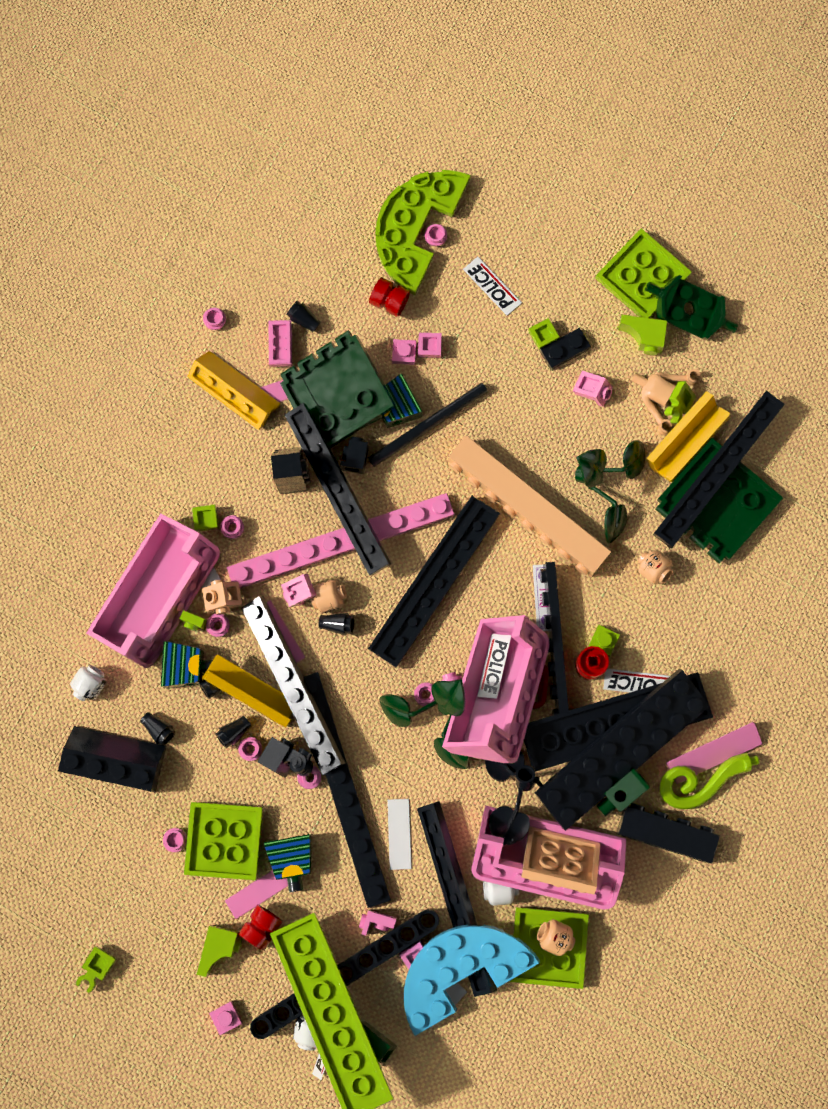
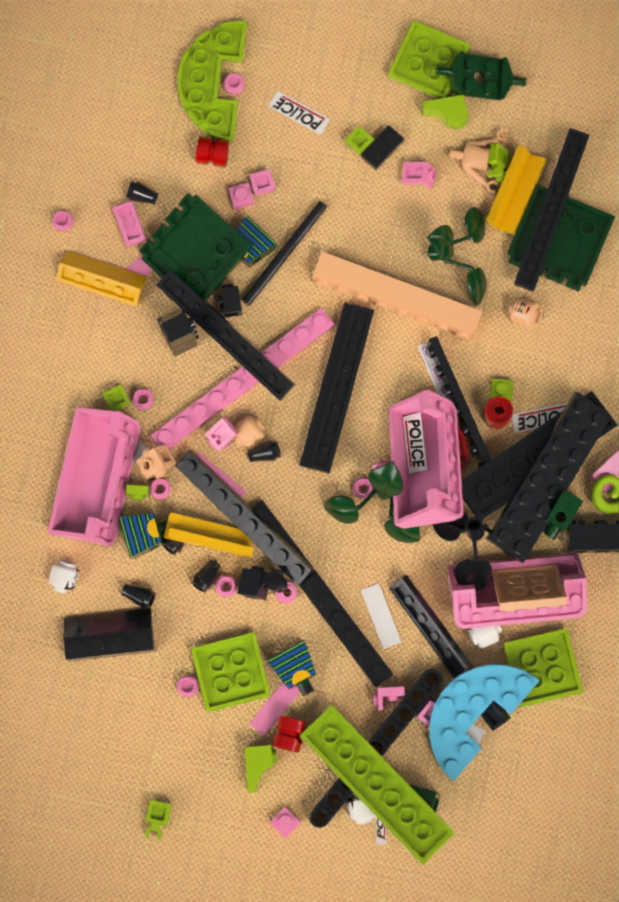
camera: 20 degrees left, 0 degrees up
(556, 937) = (546, 655): light nougat head -> none

